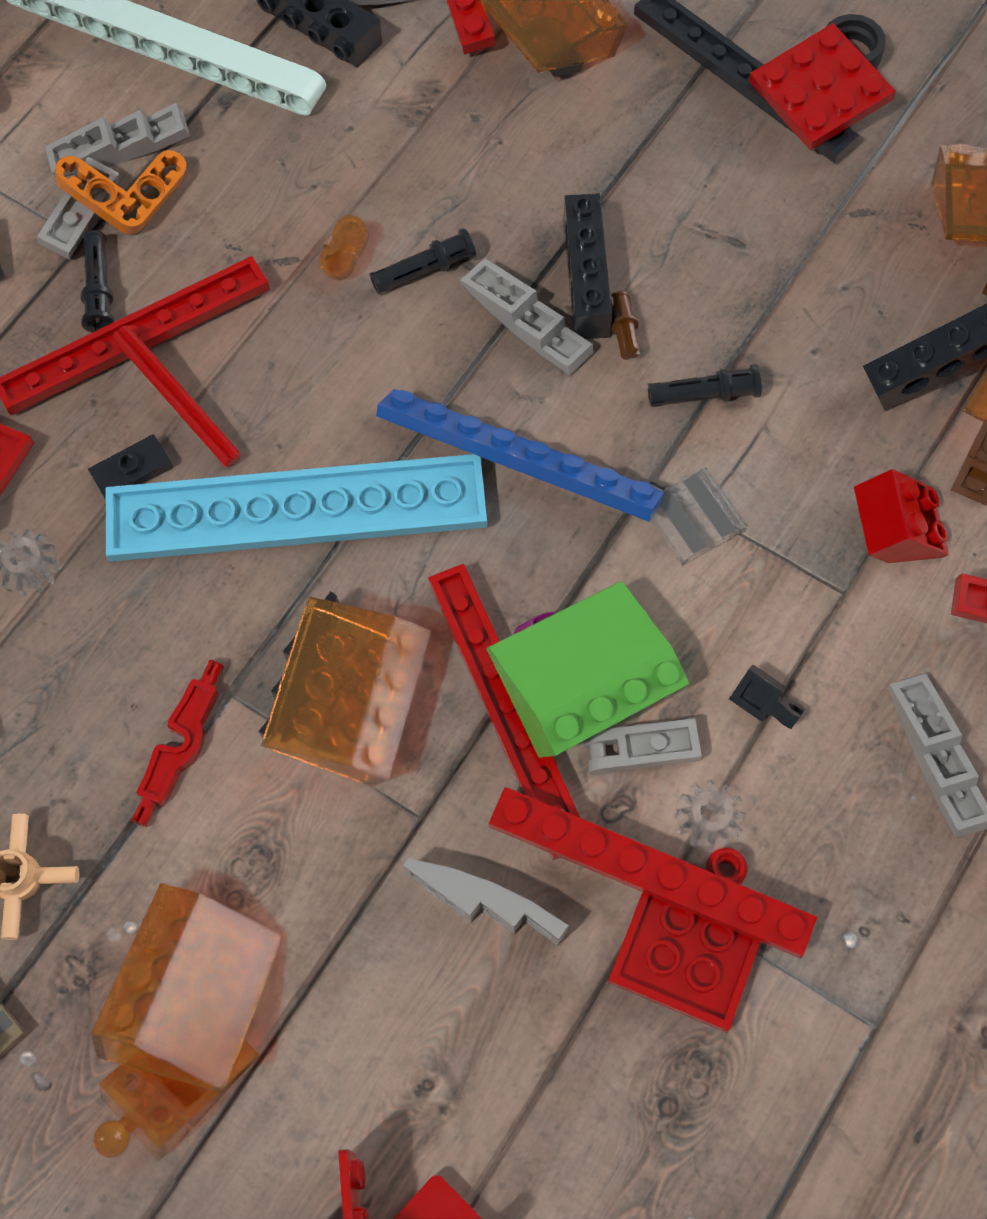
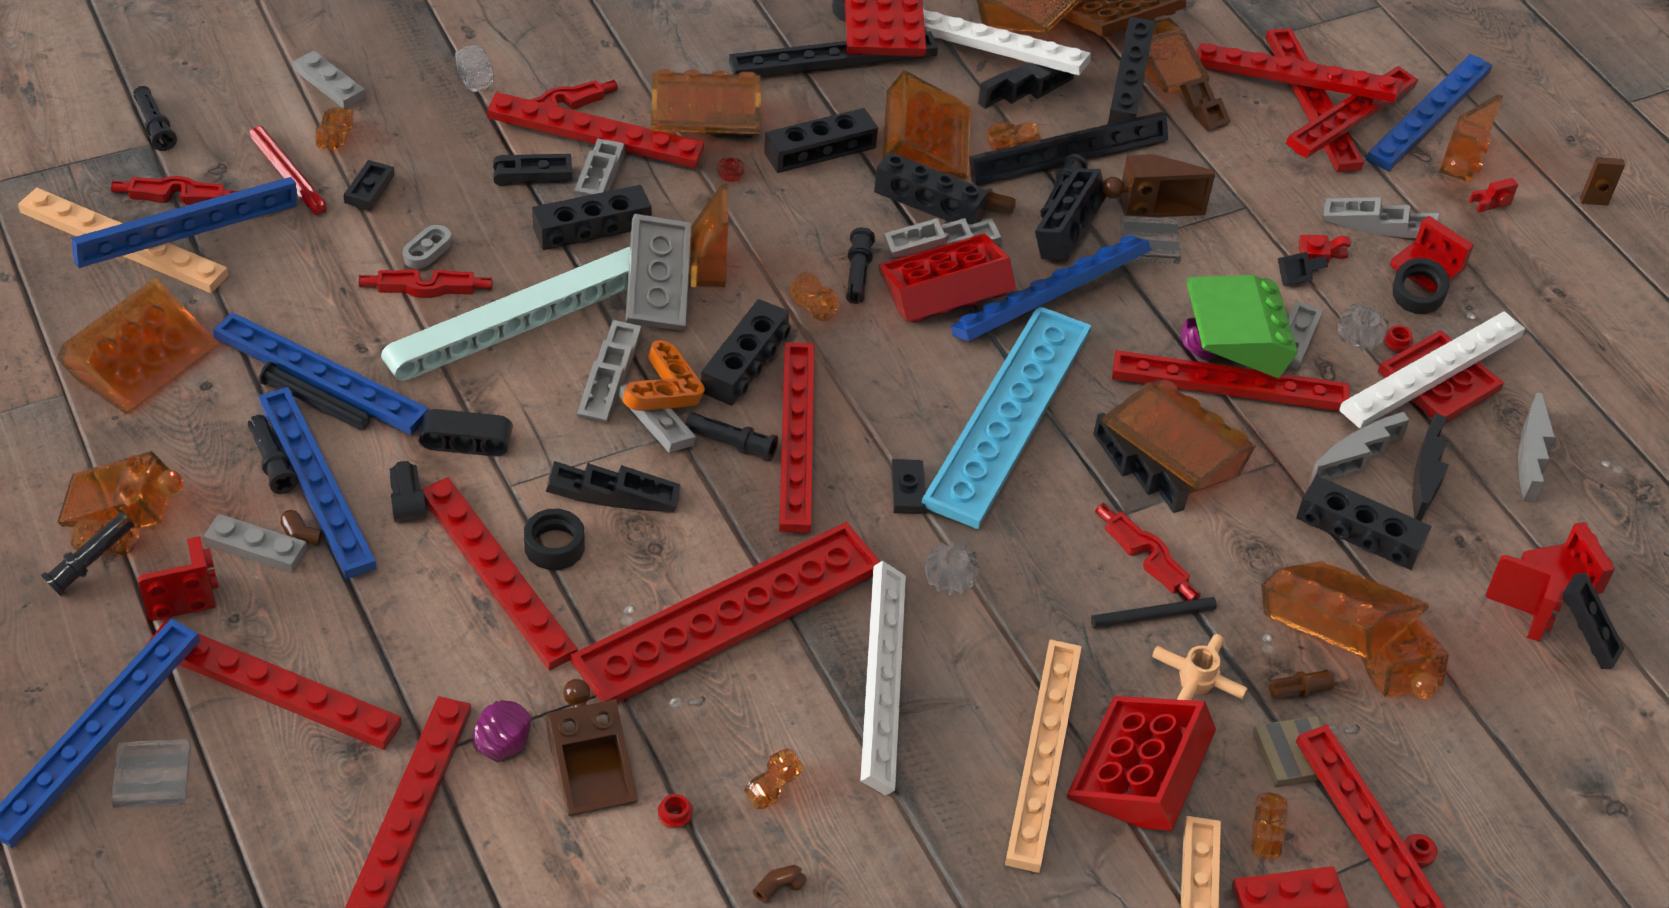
camera: 65 degrees left, 20 degrees down
(62, 995) = (1302, 684): none -> reddish brown axle
(92, 790) = (1153, 612): none -> black bar
(176, 396) = (873, 430): red axle -> none
(217, 231) = (745, 352): none -> black brick
(260, 99) = (658, 272): none -> light grey plate
(334, 119) = (710, 242): none -> clear orange slope
(370, 1025) = (1363, 522): none -> black brick
(454, 345) = (948, 277): none -> red slope
(487, 82) = (730, 169): none -> clear red plate
(491, 1002) = (1429, 469): none -> black slope
(591, 131) = (820, 140): none -> black brick
(653, 413) = (1070, 214): none -> black brick
(653, 872) = (1331, 392): red plate -> none
(653, 1111) = (1533, 448): none -> light grey slope
(686, 933) = (1431, 370): none -> white plate
(690, 214) = (927, 126): none -> clear orange slope
(751, 298) = (1007, 134): none -> clear orange piece
(764, 477) = (1161, 187): none -> reddish brown slope
(779, 362) = (1054, 150): none -> black plate
(827, 704) = (1321, 246): none -> red plate
(844, 822) = (1423, 267): none -> black tyre
(872, 271) = (1021, 82): none -> black slope
(893, 209) = (1006, 43): none -> white plate
(900, 518) = (1218, 153): red slope -> none
(904, 846) = (1437, 244): none -> red bracket

